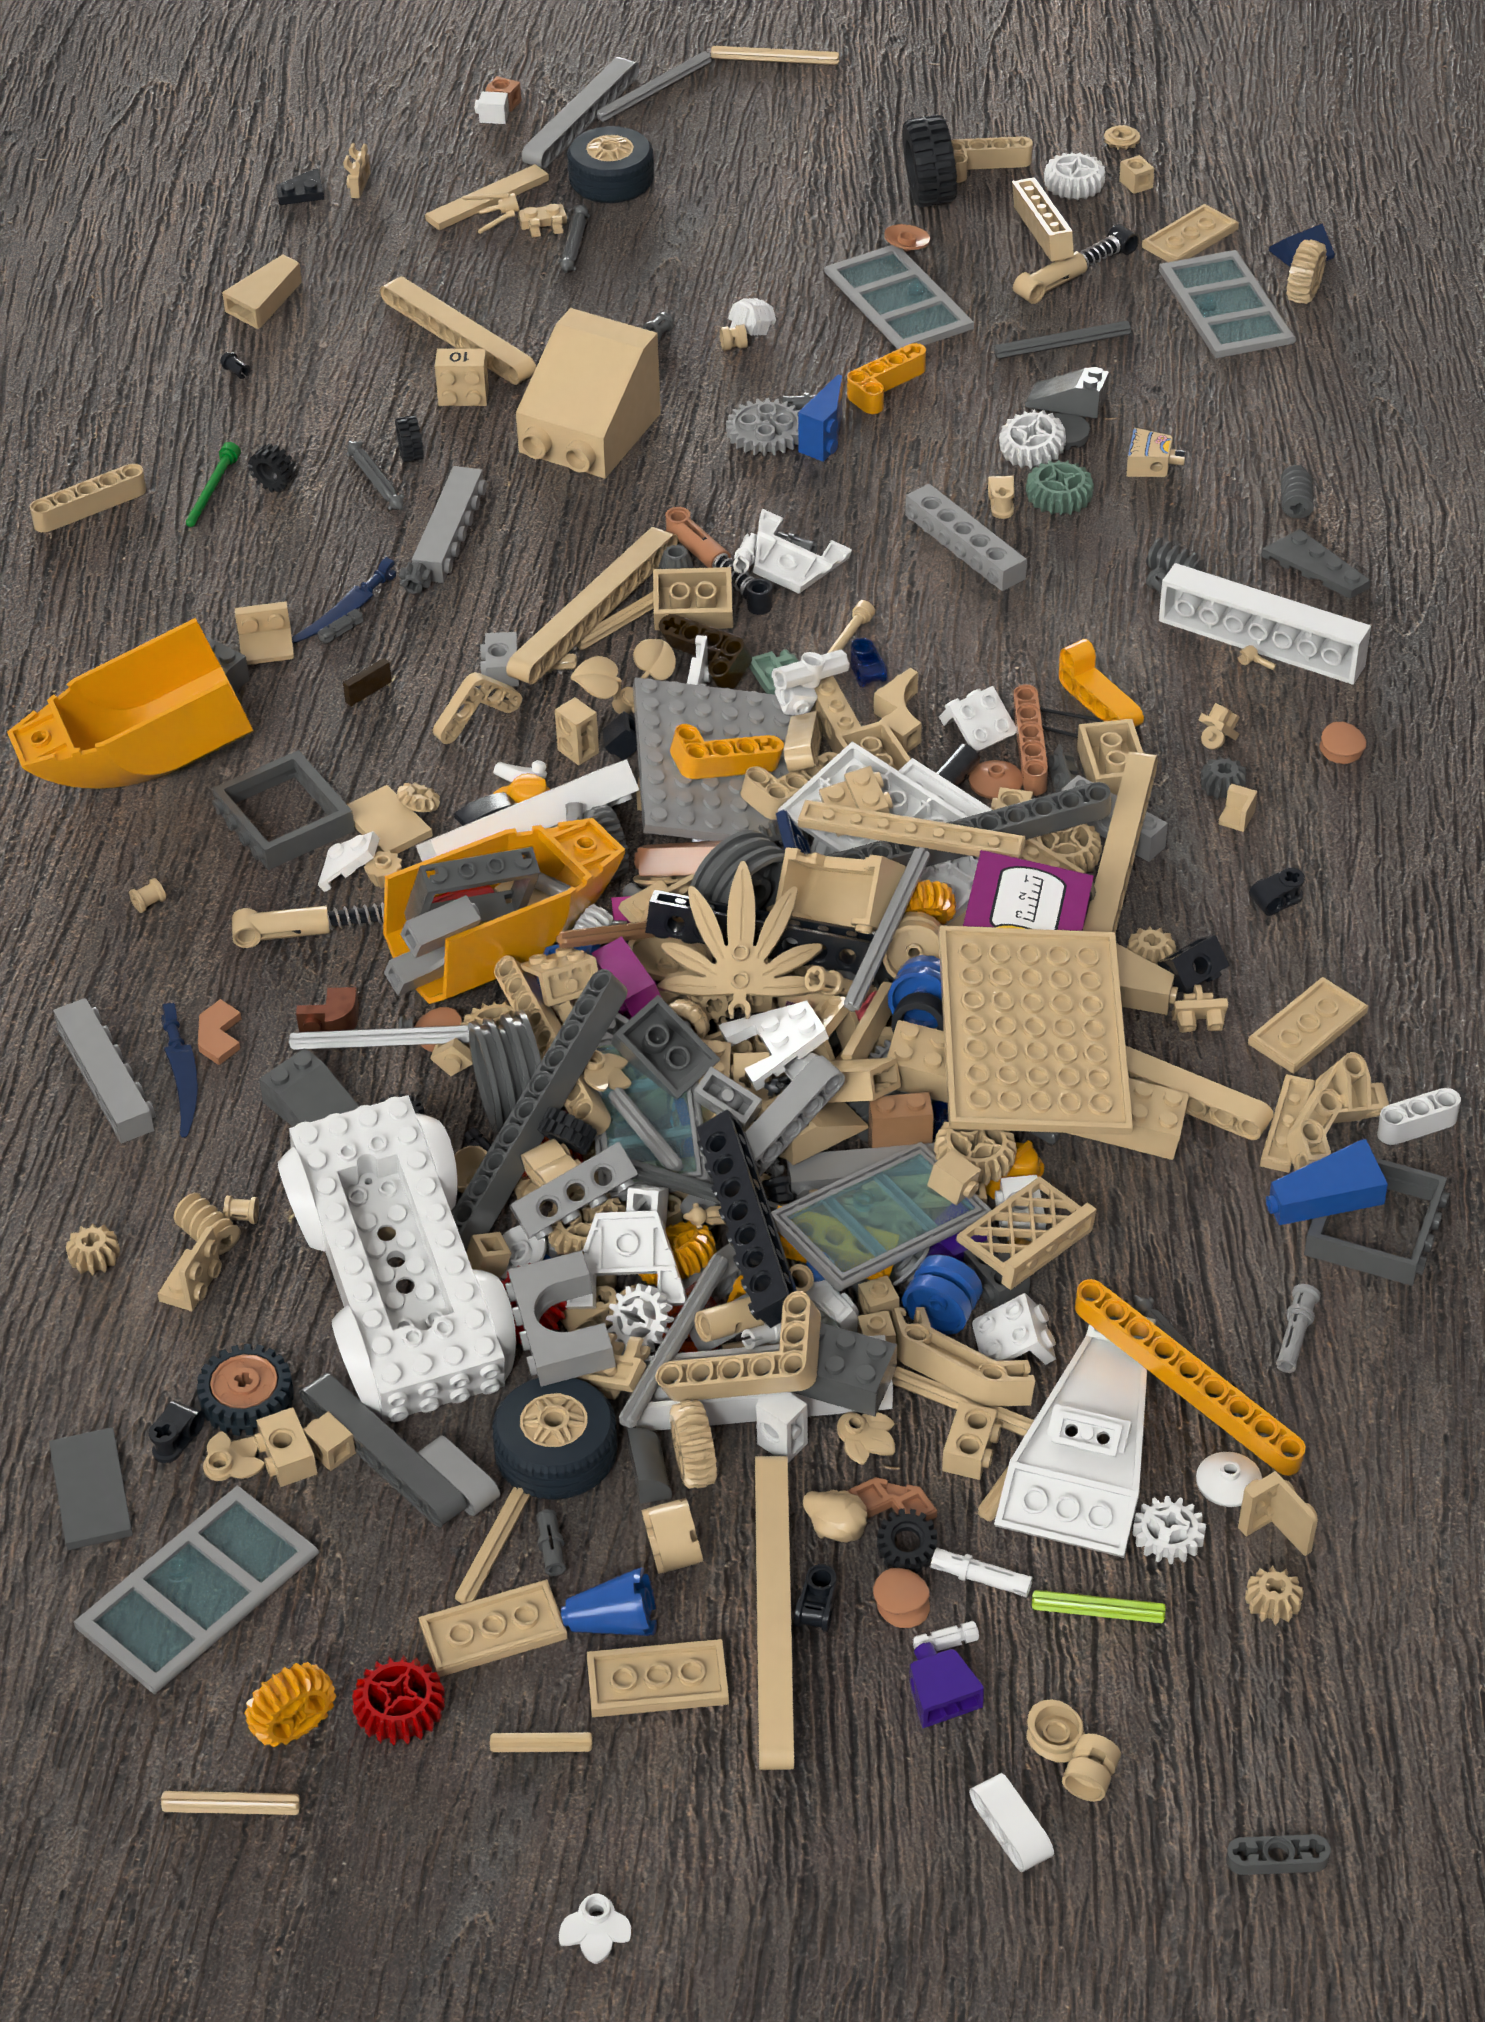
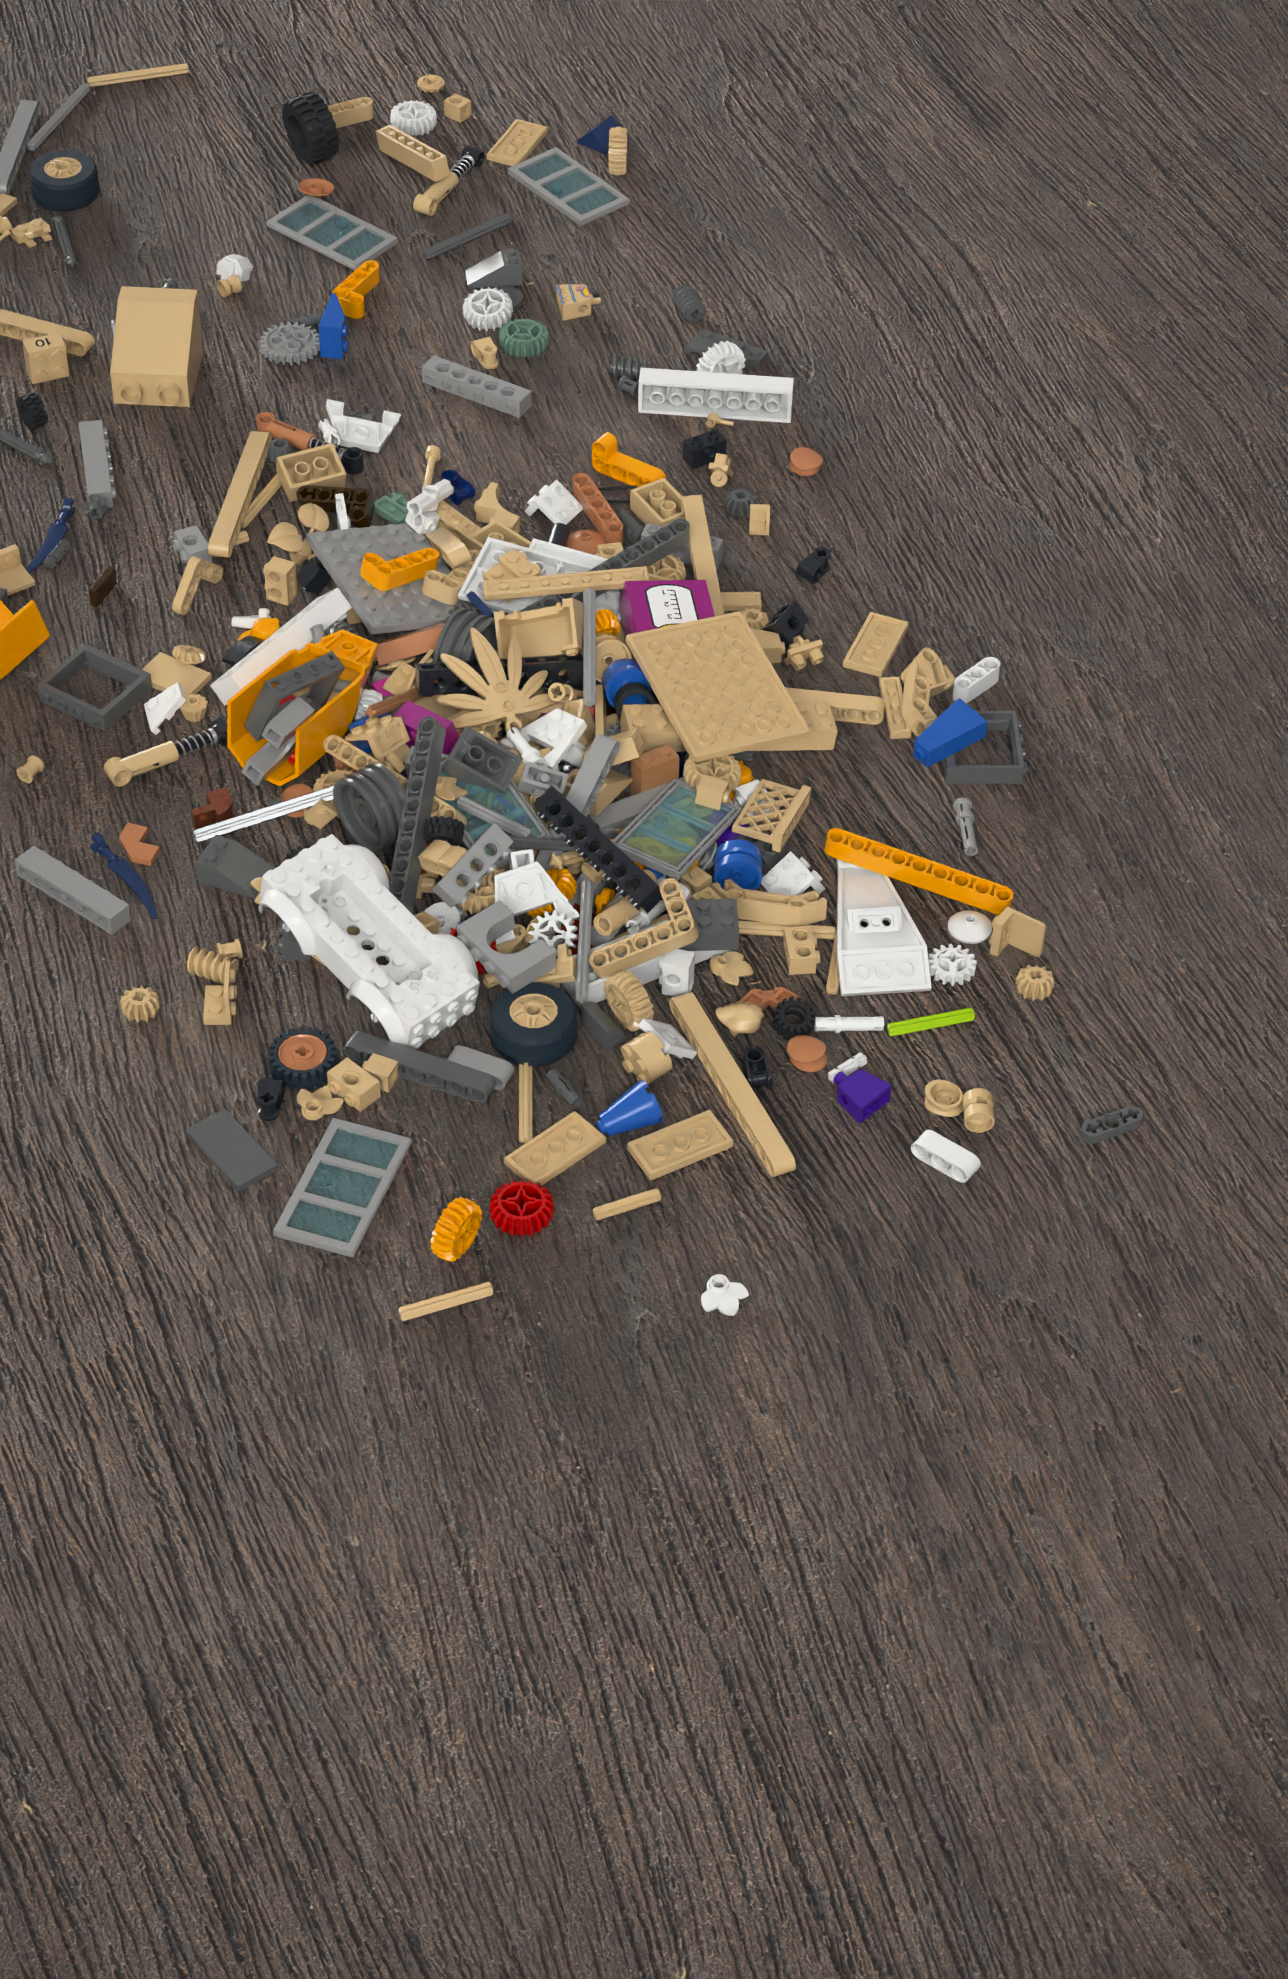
camera: 25 degrees left, 0 degrees up
(719, 1515) = (670, 1037): none -> white plate
(734, 1057) = (527, 752): none -> white pin
(1156, 914) = (740, 600): none -> tan tile
(1208, 688) = (703, 448): none -> black brick
(1294, 579) = (722, 358): none -> white gear

